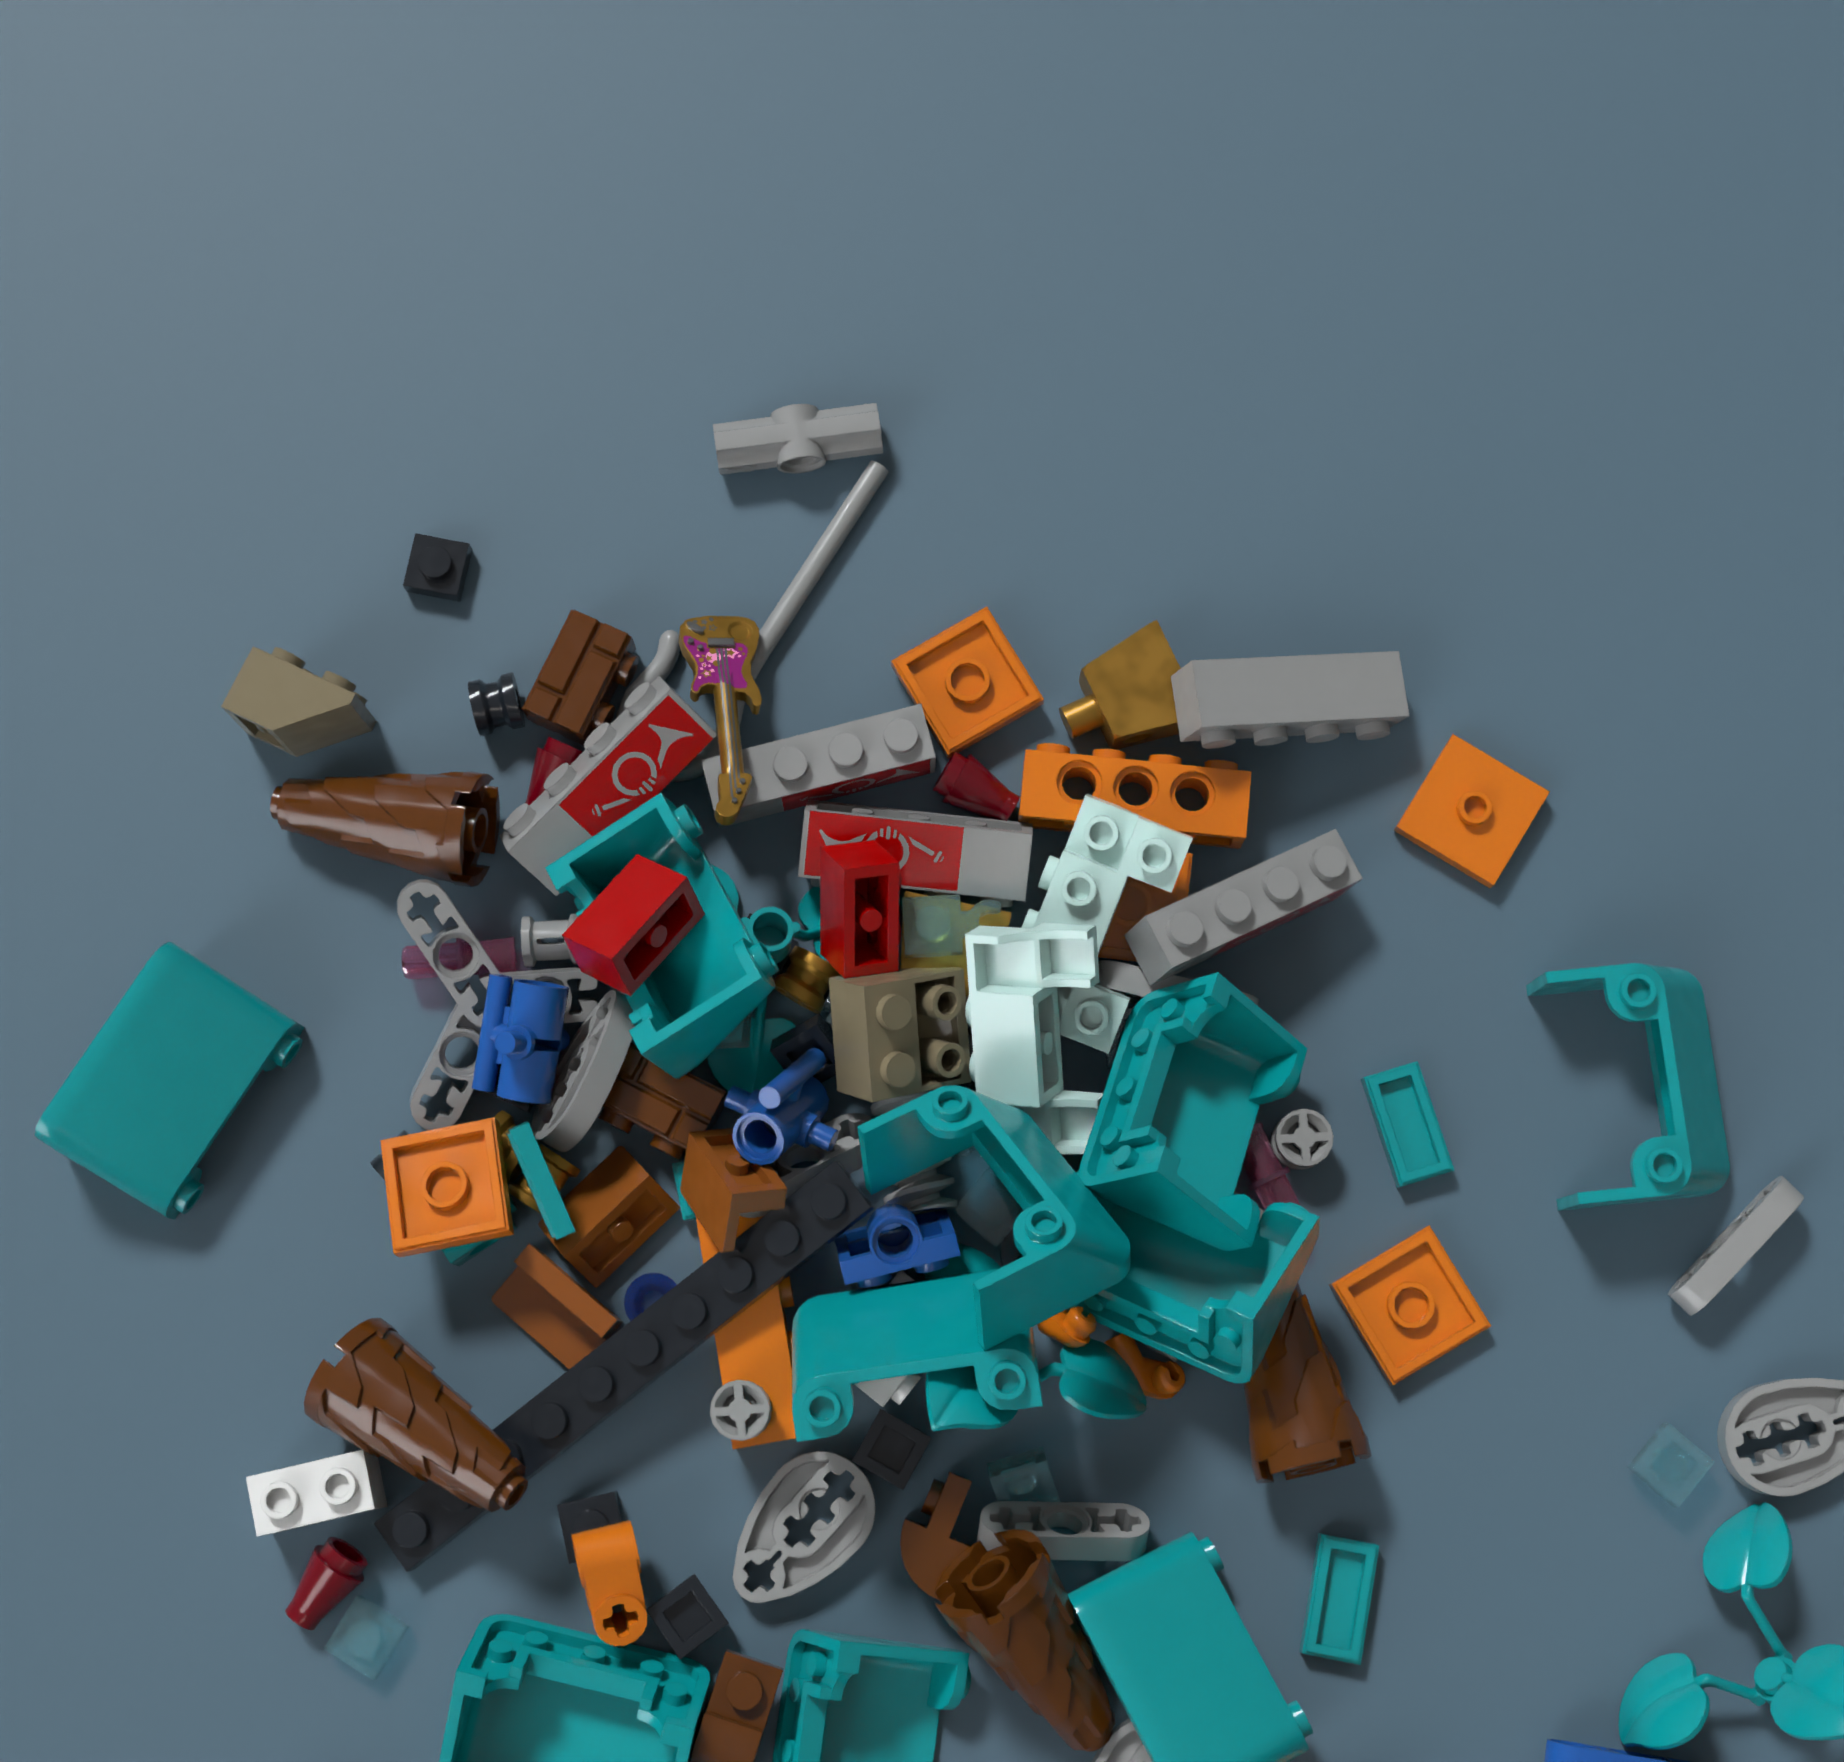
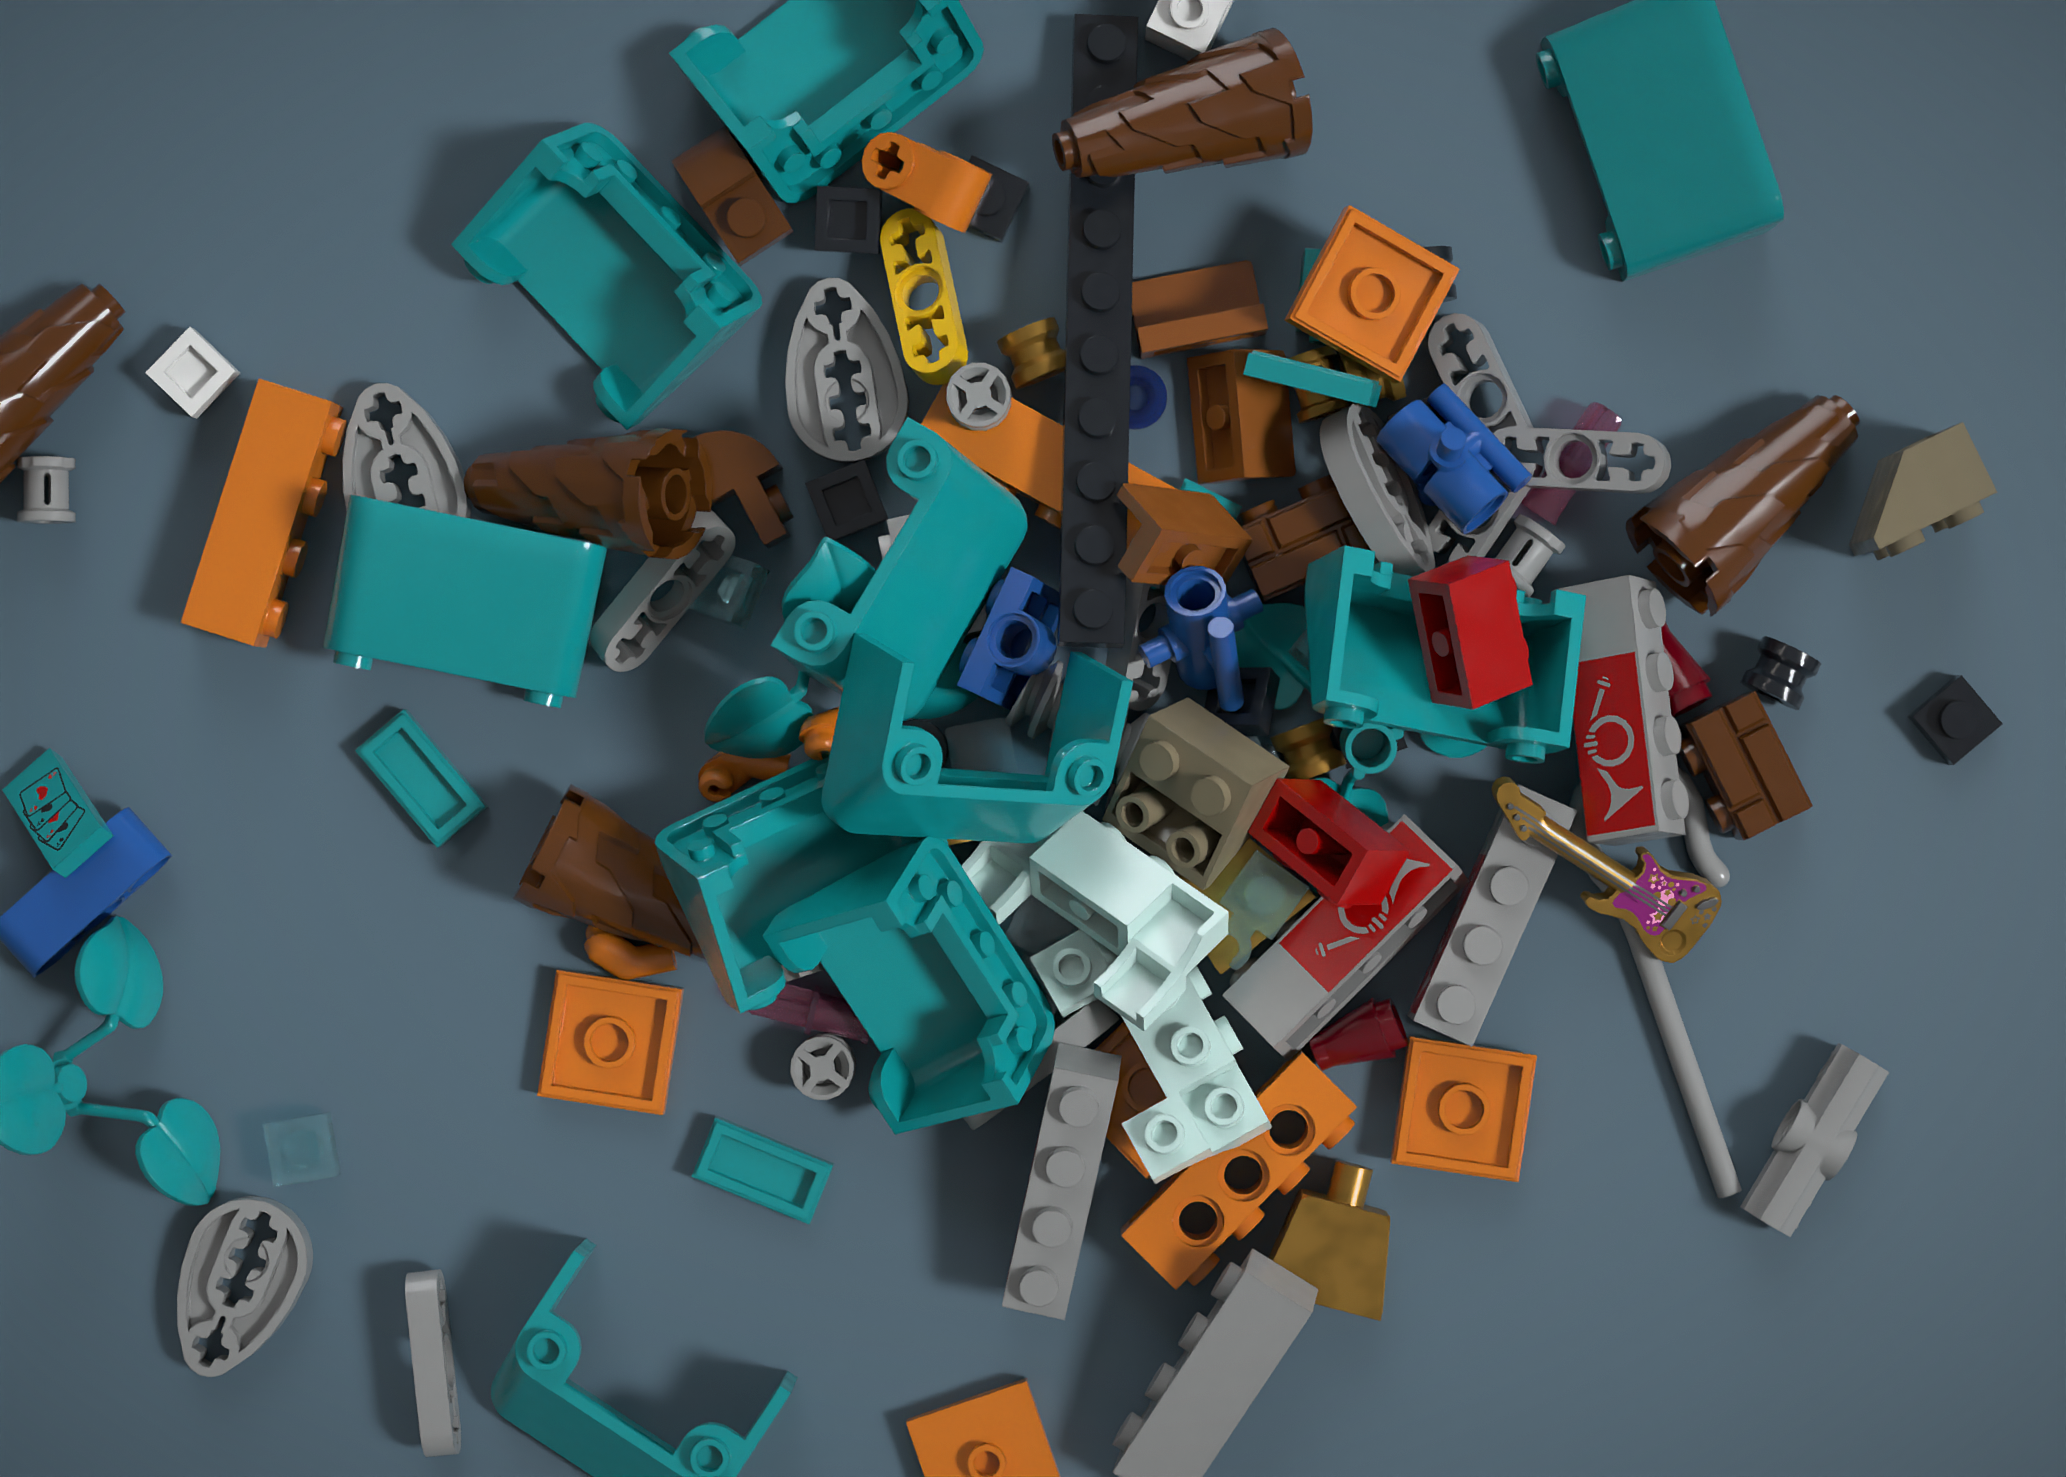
camera: 130 degrees right, 10 degrees up
(677, 1400) = (1034, 352): none -> pearl gold wheel
(703, 1488) = (905, 277): none -> yellow beam
(1082, 1067) = (1037, 926): none -> clear light blue plate
(1344, 1342) = (625, 959): none -> orange arm

